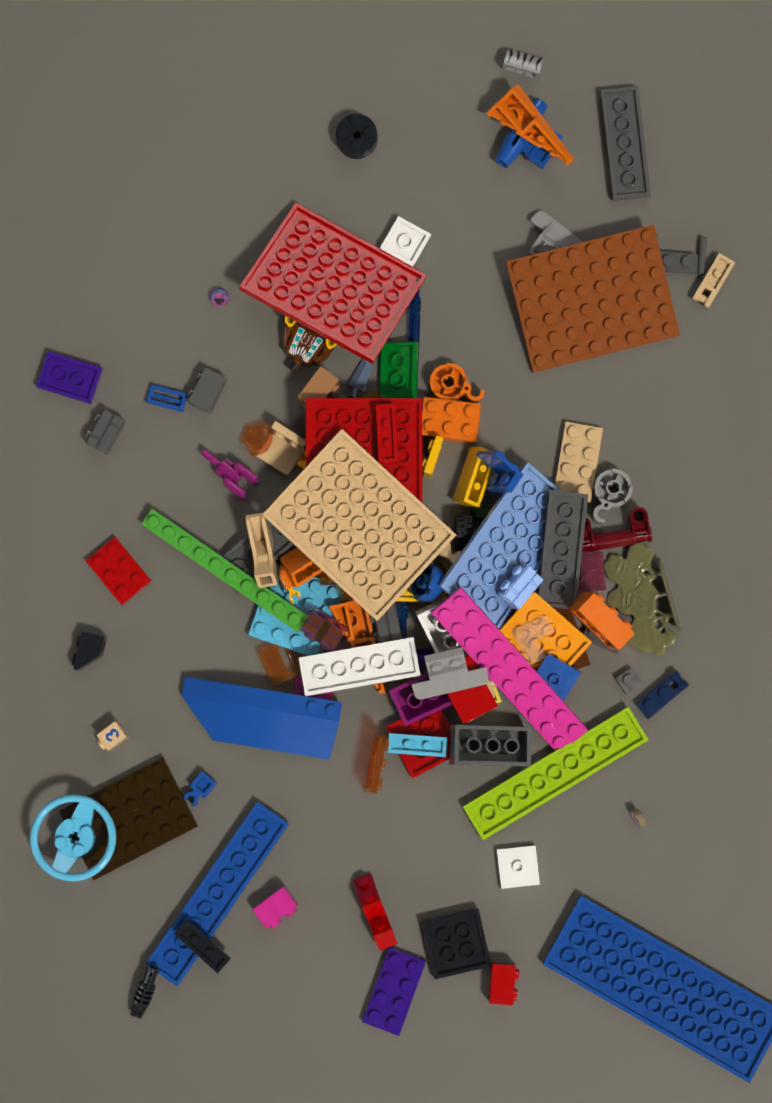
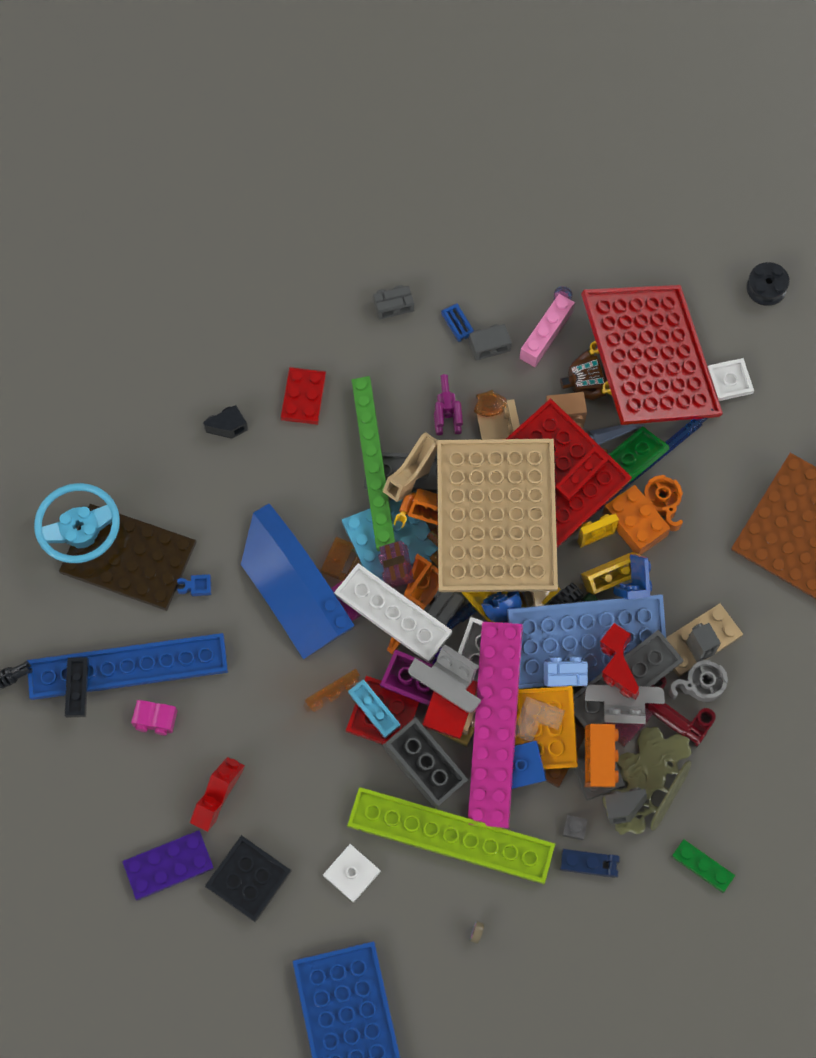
camera: 45 degrees right, 15 degrees down
(69, 377) = (408, 249): dark purple plate -> none
(111, 736) = (178, 491): tan brick -> none
(238, 339) = (547, 330): none -> bright pink brick
(503, 983) = (249, 943): red brick -> none
(554, 550) = (617, 670): none -> red arch
(580, 566) = (621, 709): none -> light grey plate
(586, 466) = (703, 642): none -> dark grey brick
(648, 635) = (624, 805): none -> dark grey slope
(735, 618) = (703, 866): none -> green plate

